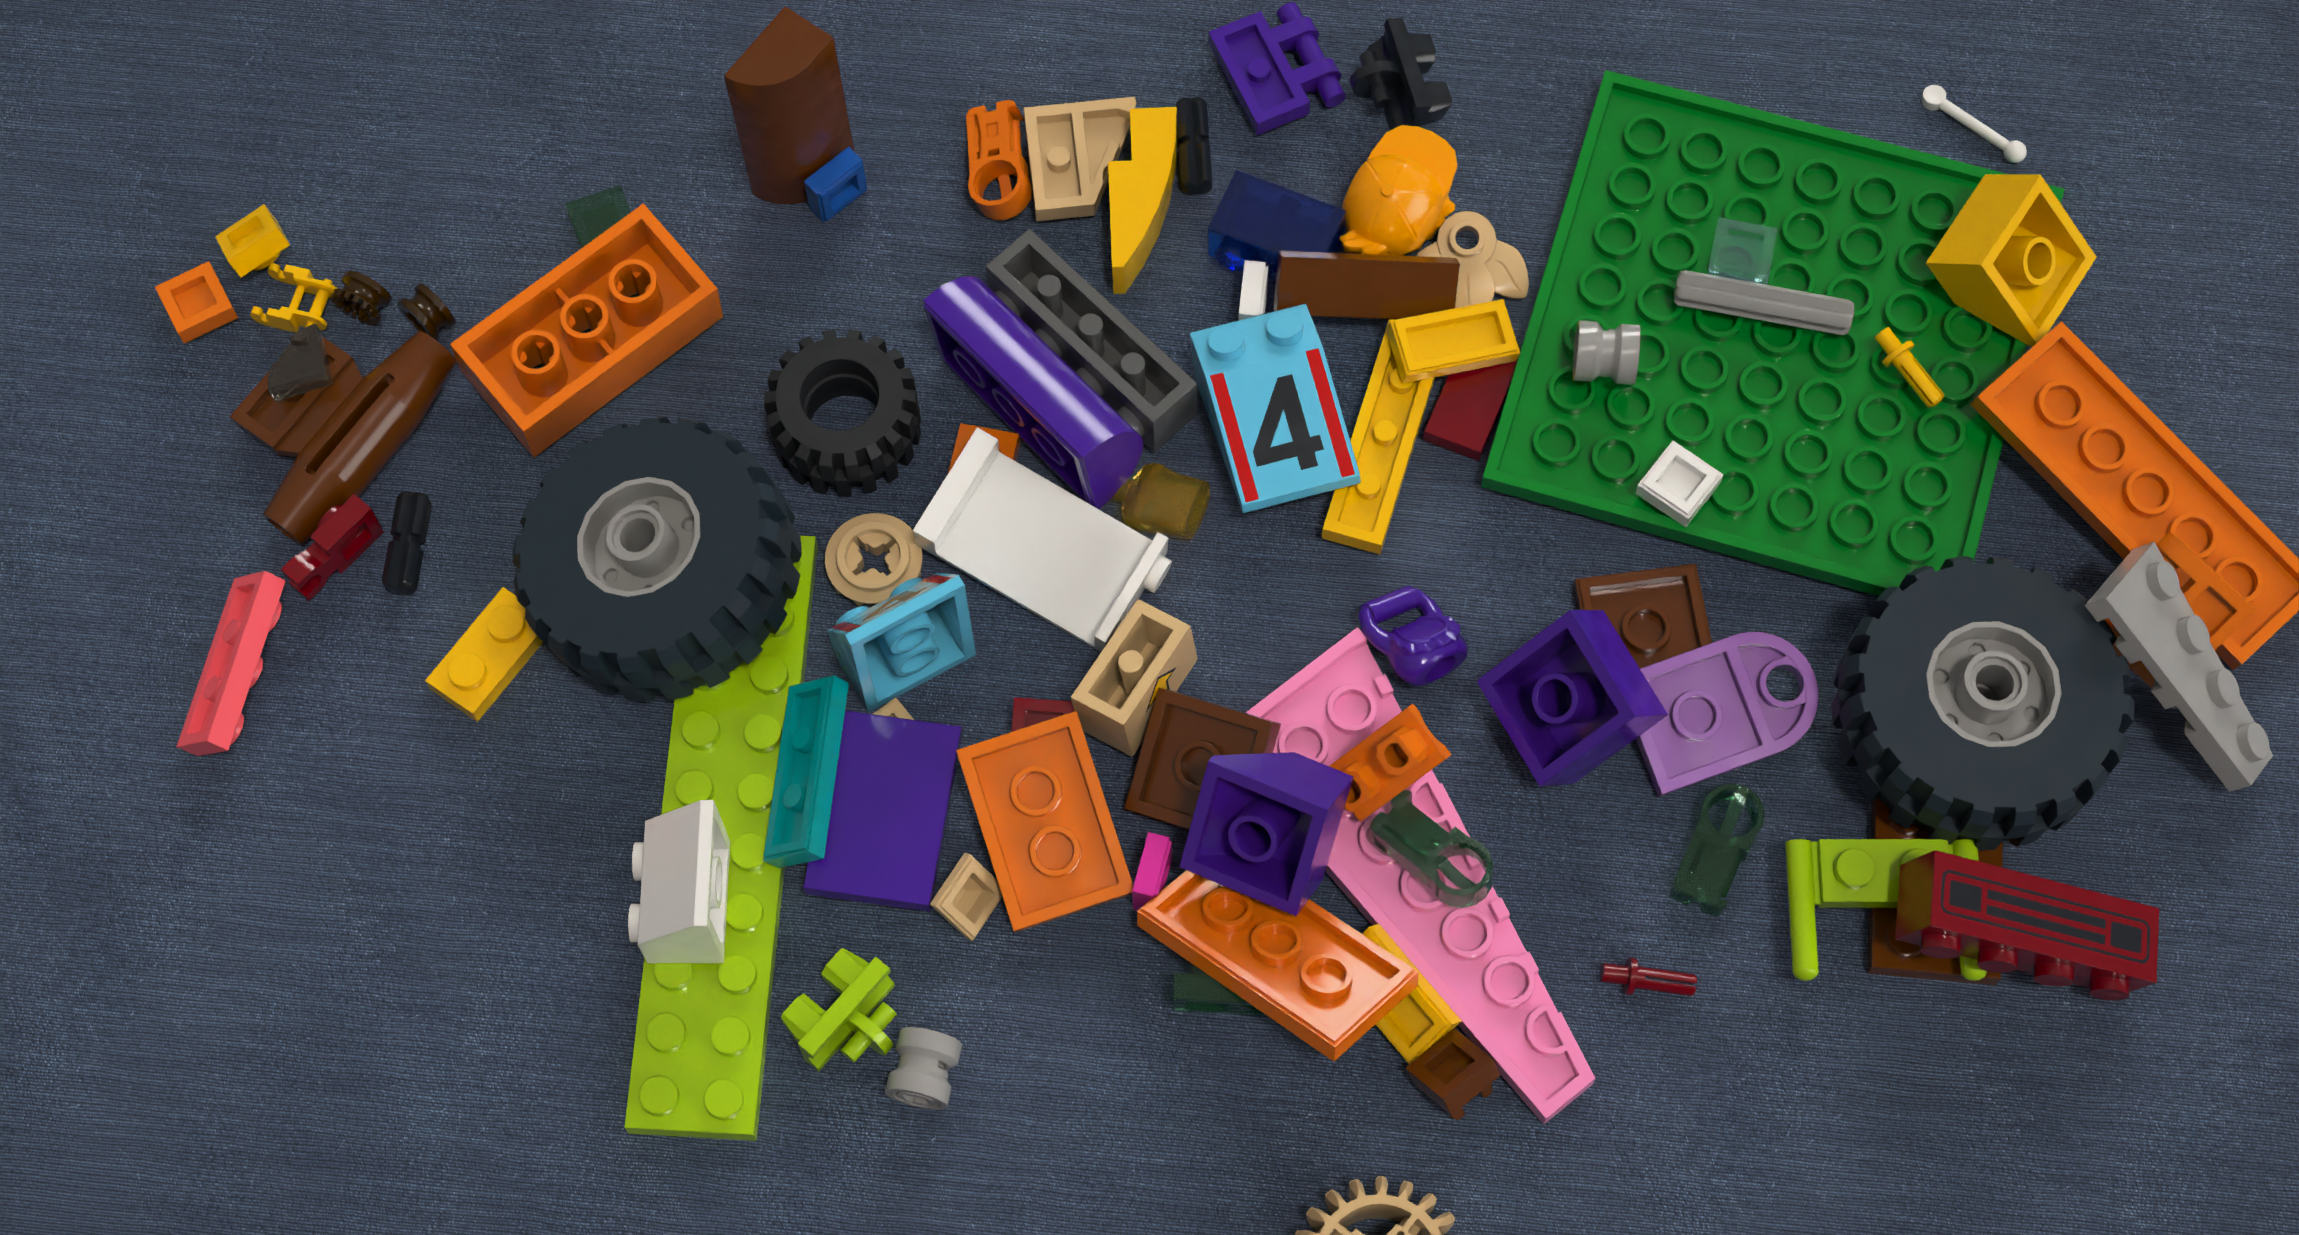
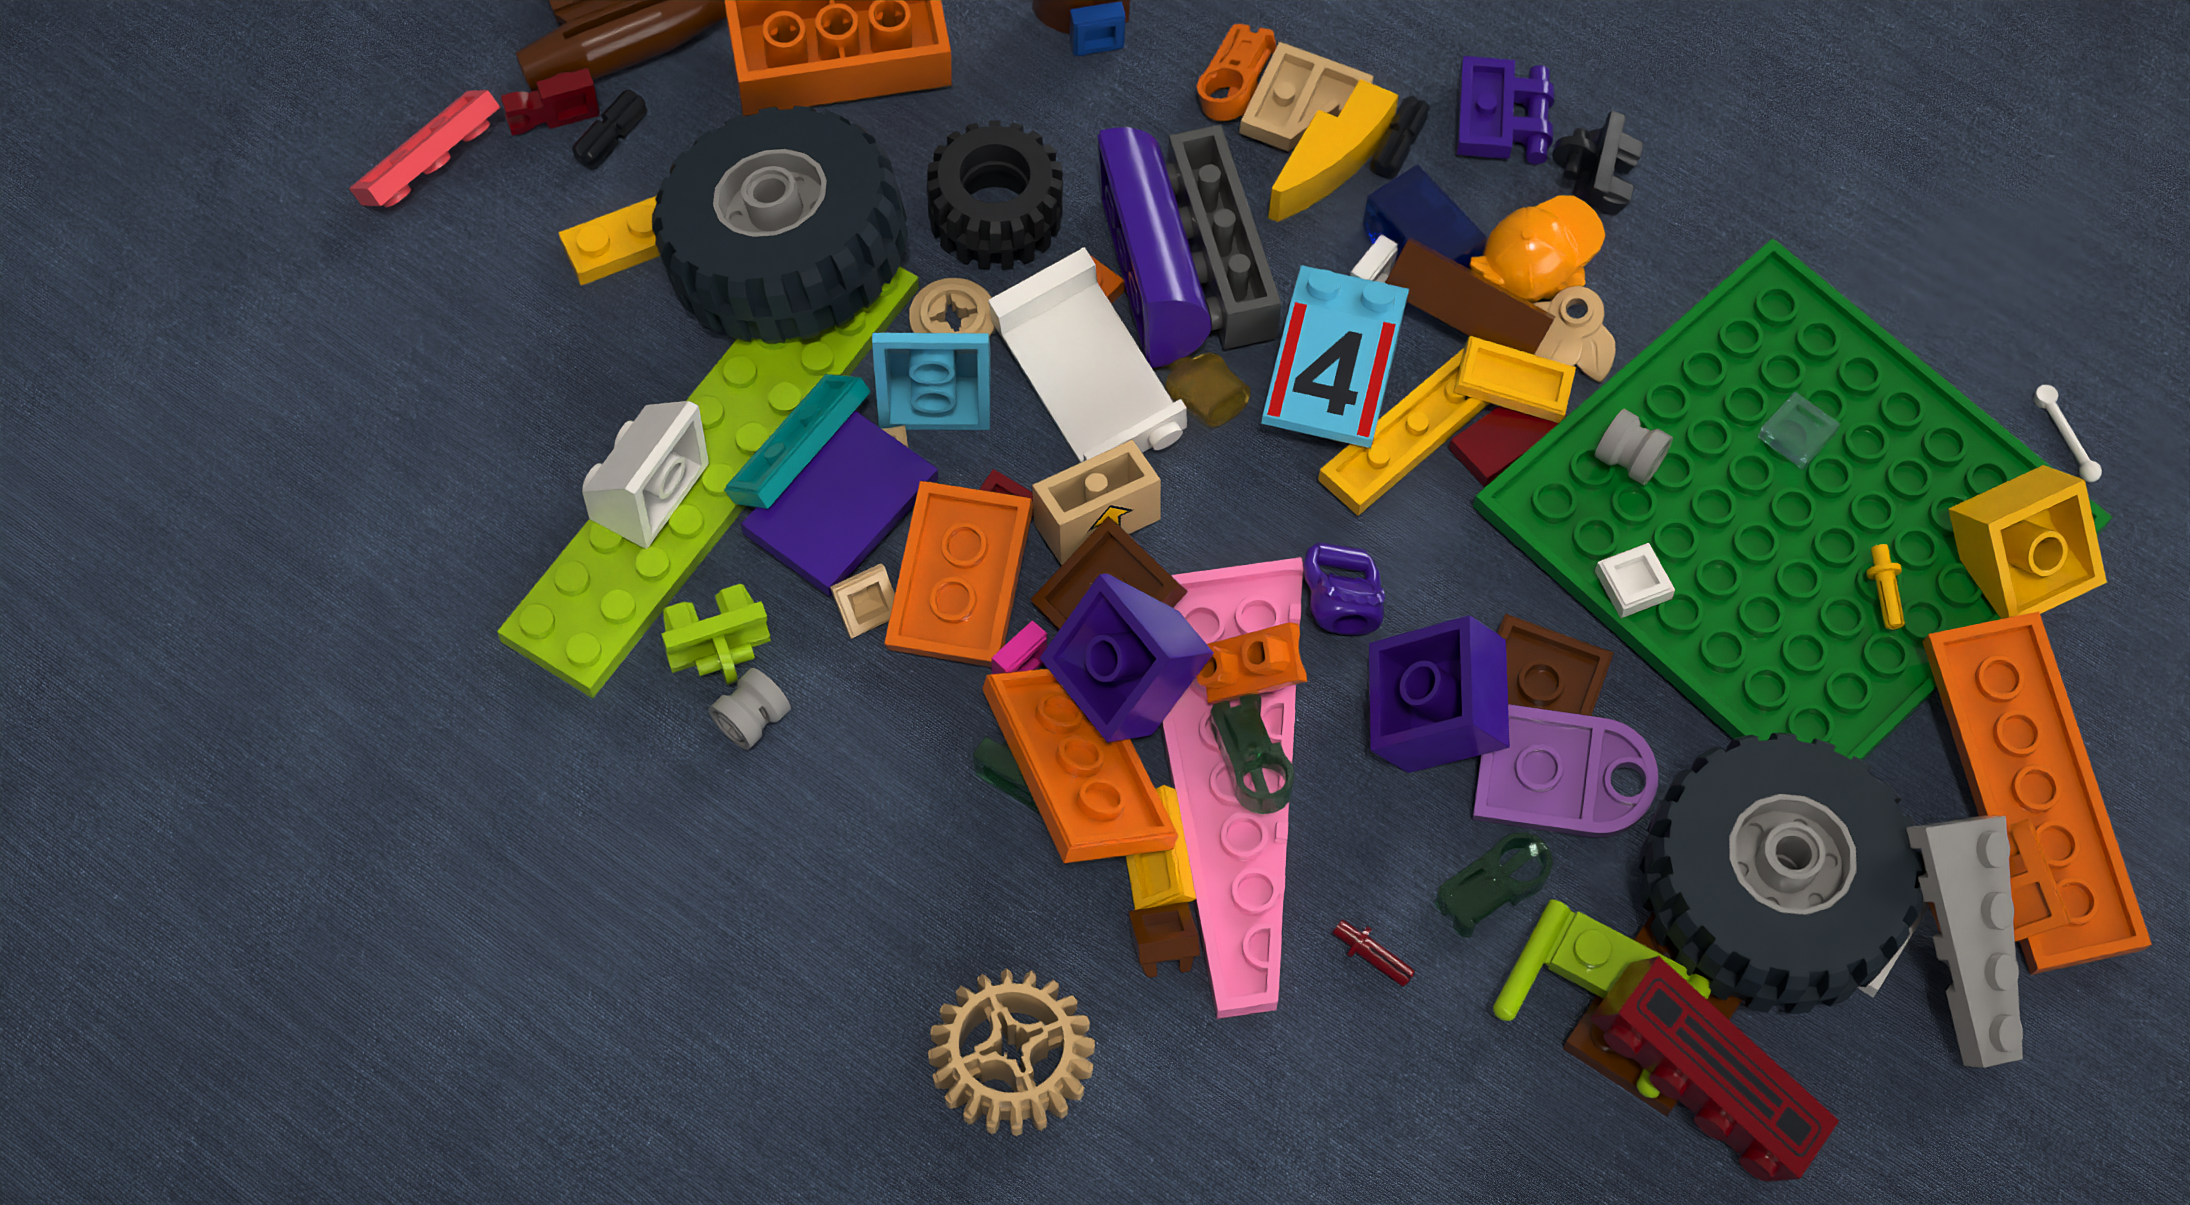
camera: 25 degrees right, 5 degrees down
(1764, 302) = (1793, 476): light grey axle -> none

